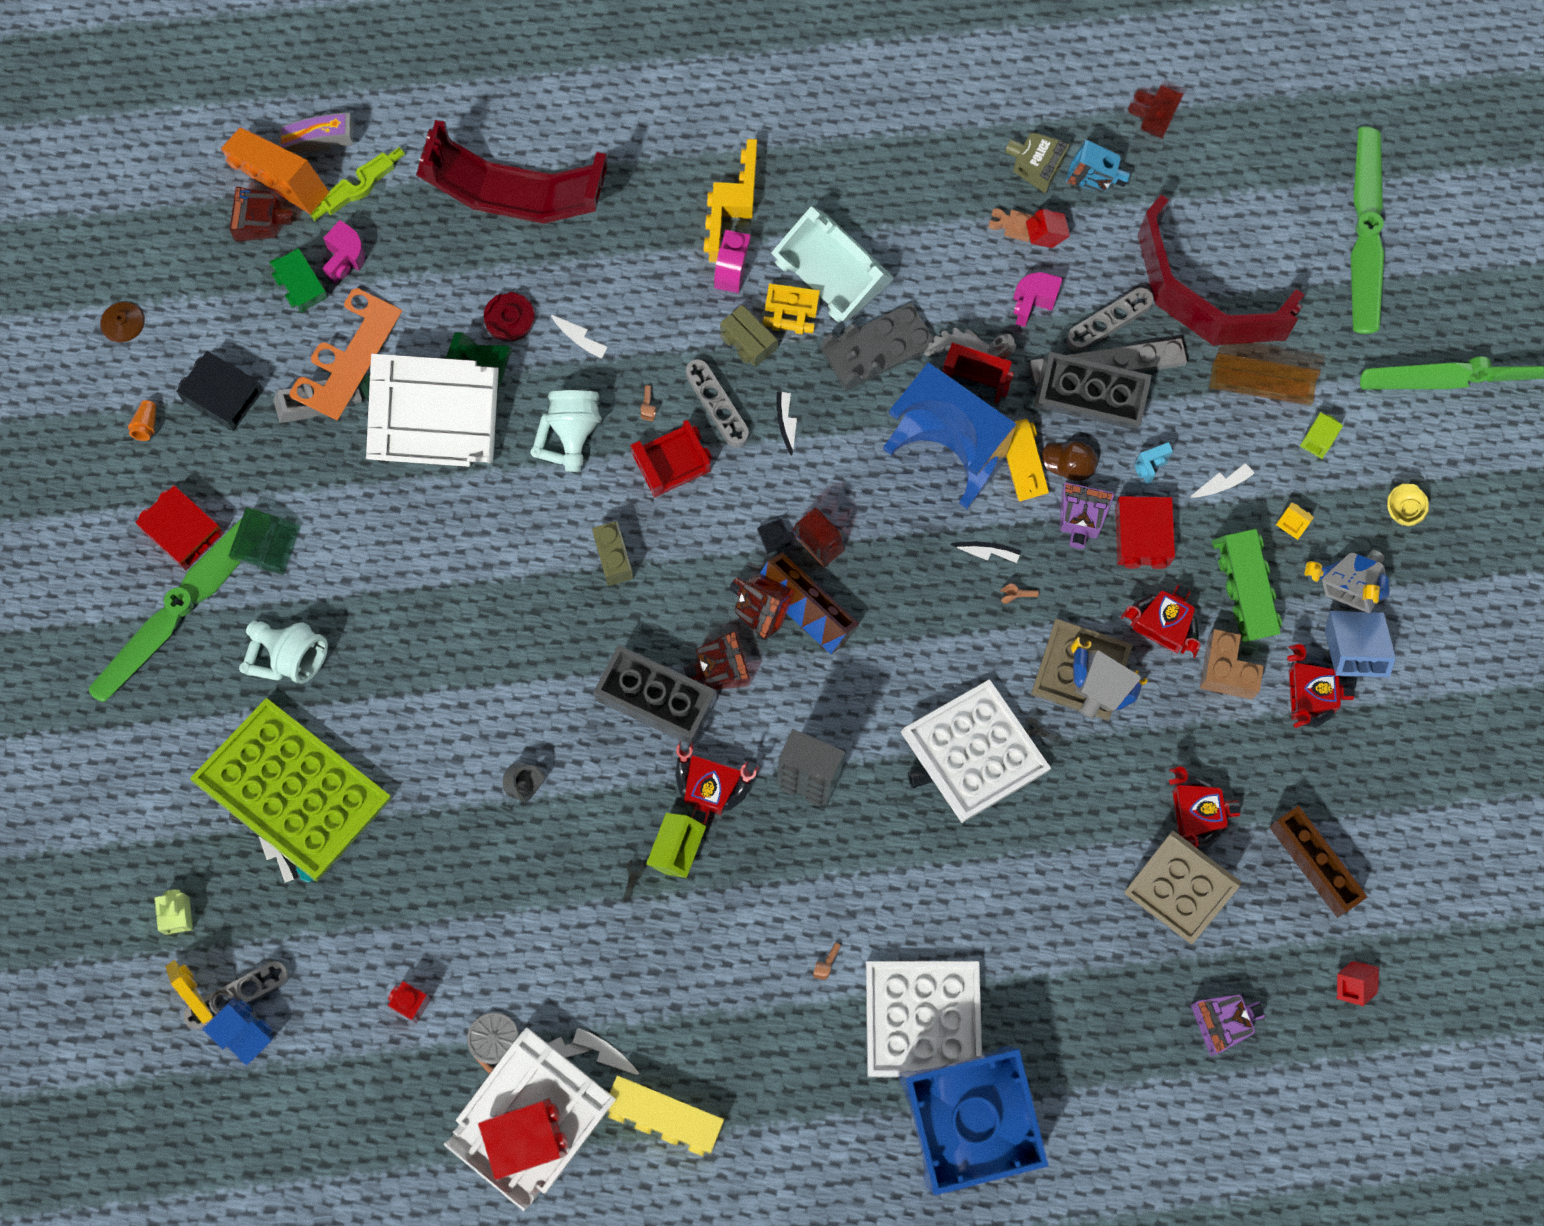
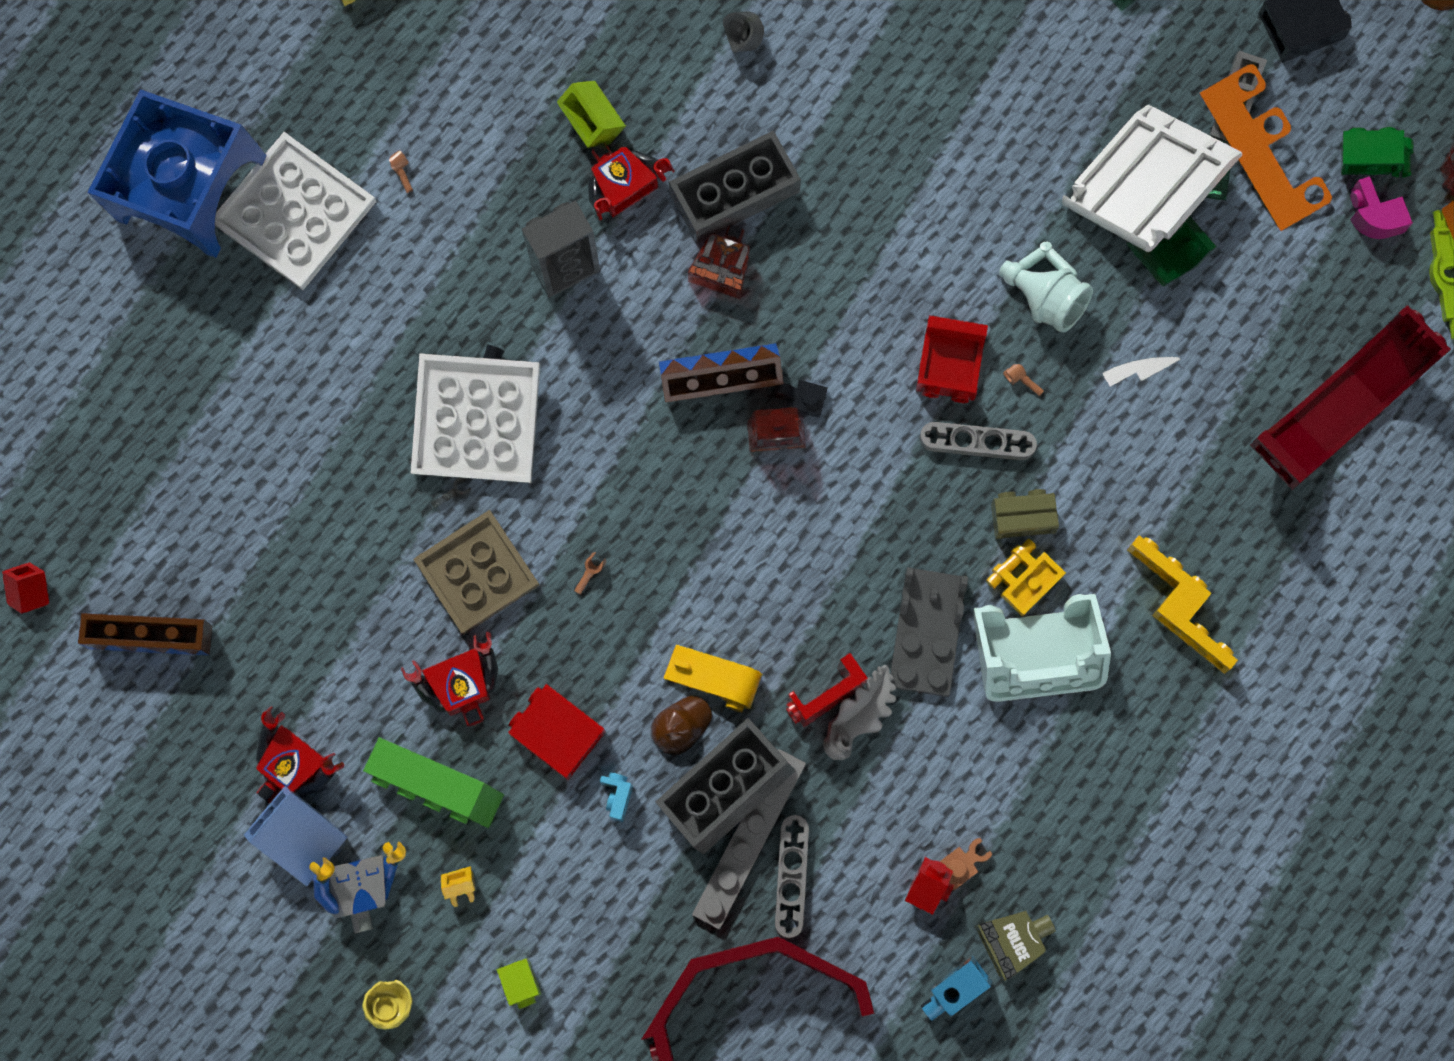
camera: 130 degrees right, 5 degrees up
(504, 322) = (1196, 315): dark red tile -> none
(612, 553) = (895, 243): olive brick -> none
(633, 876) = (594, 67): clear smoke hand -> none
(731, 261) = (1112, 547): dark pink brick -> none
(762, 603) = (749, 332): clear red torso -> none
(786, 424) = (912, 492): sticker -> none
(955, 417) = (754, 627): blue piece -> none
(984, 550) = (655, 578): sticker -> none
(1035, 290) = (874, 825): dark pink brick -> none
(1083, 512) = (617, 689): torso -> none
(1103, 681) = (443, 570): light grey torso -> none
(1182, 887) = (217, 495): dark tan plate -> none
(1200, 808) = (270, 570): red torso -> none
(1220, 483) = (551, 850): white sticker -> none
(1224, 672) = (368, 695): medium nougat brick -> none
(1226, 1021) = (88, 450): torso -> none
(1263, 378) = (616, 974): clear orange panel -> none

